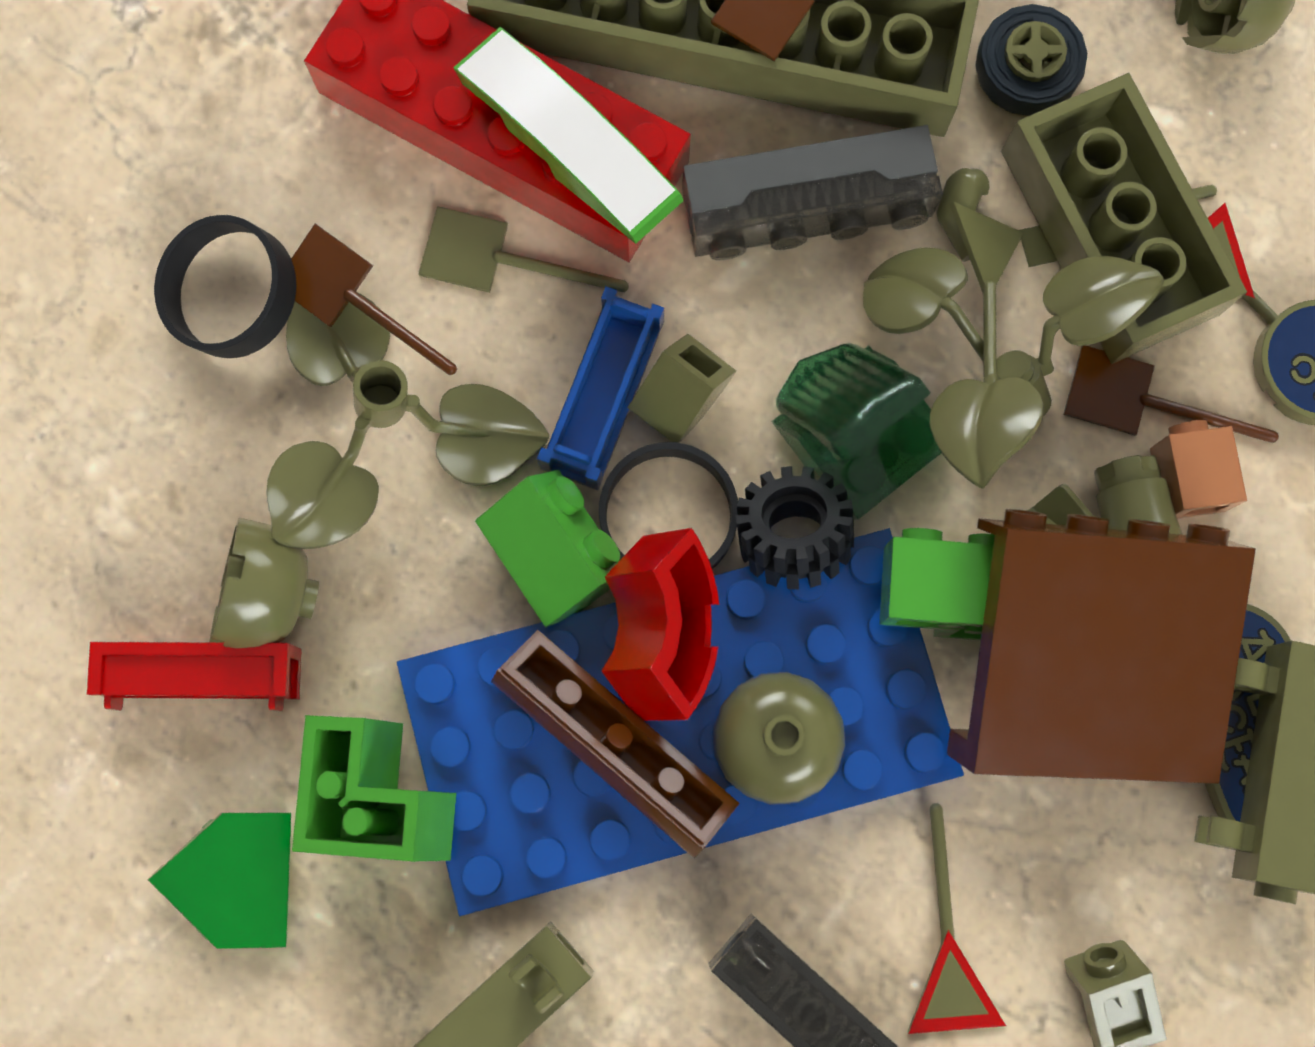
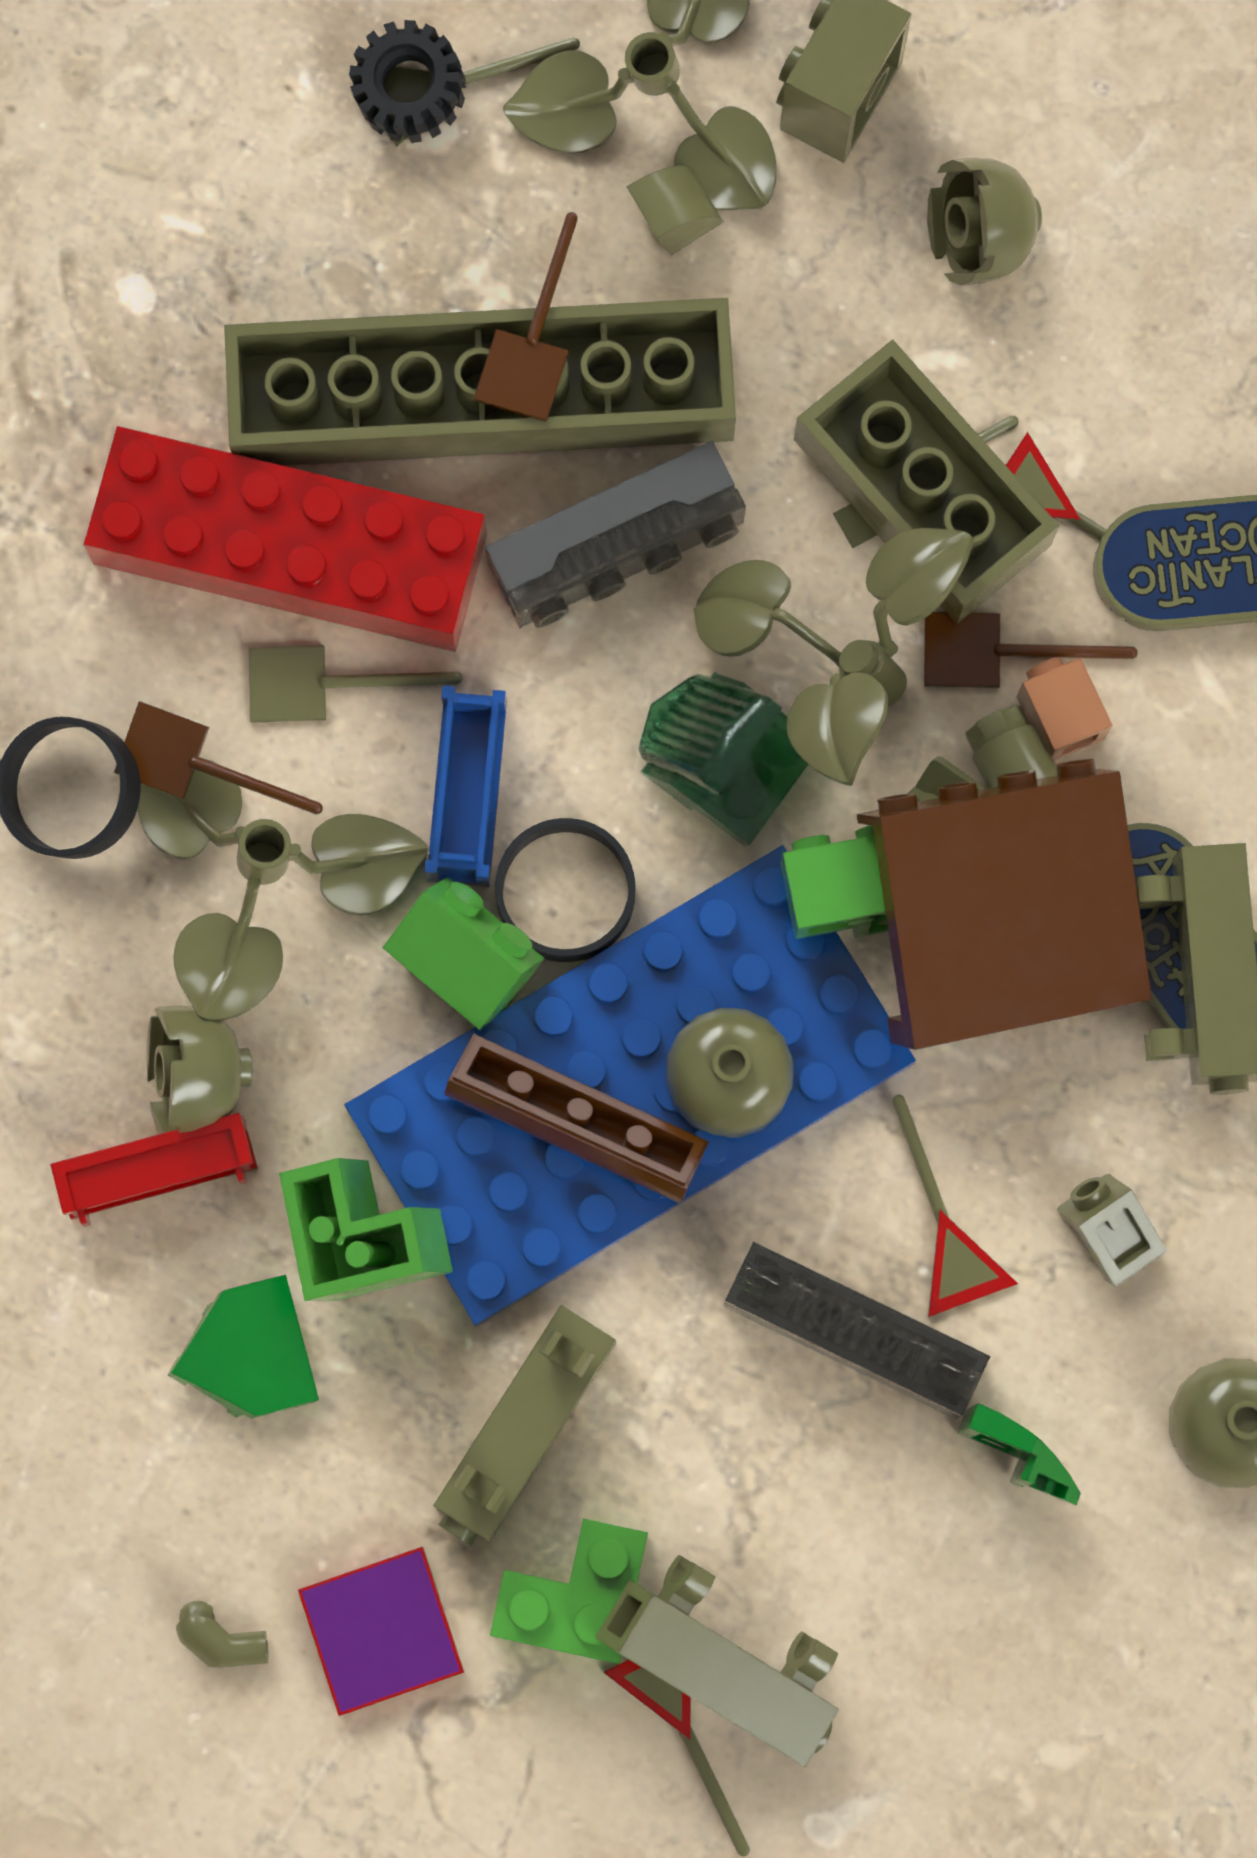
camera: 15 degrees left, 0 degrees up
(569, 135) = (369, 553): white slope -> none
(664, 625) = (591, 995): red brick -> none
(681, 388) = (543, 764): olive brick -> none
(795, 498) = (697, 897): black tyre -> none
(966, 189) = (765, 511): olive arm -> none
(989, 250) = (806, 543): olive piece -> none
(1047, 43) = (796, 317): black wheel -> none

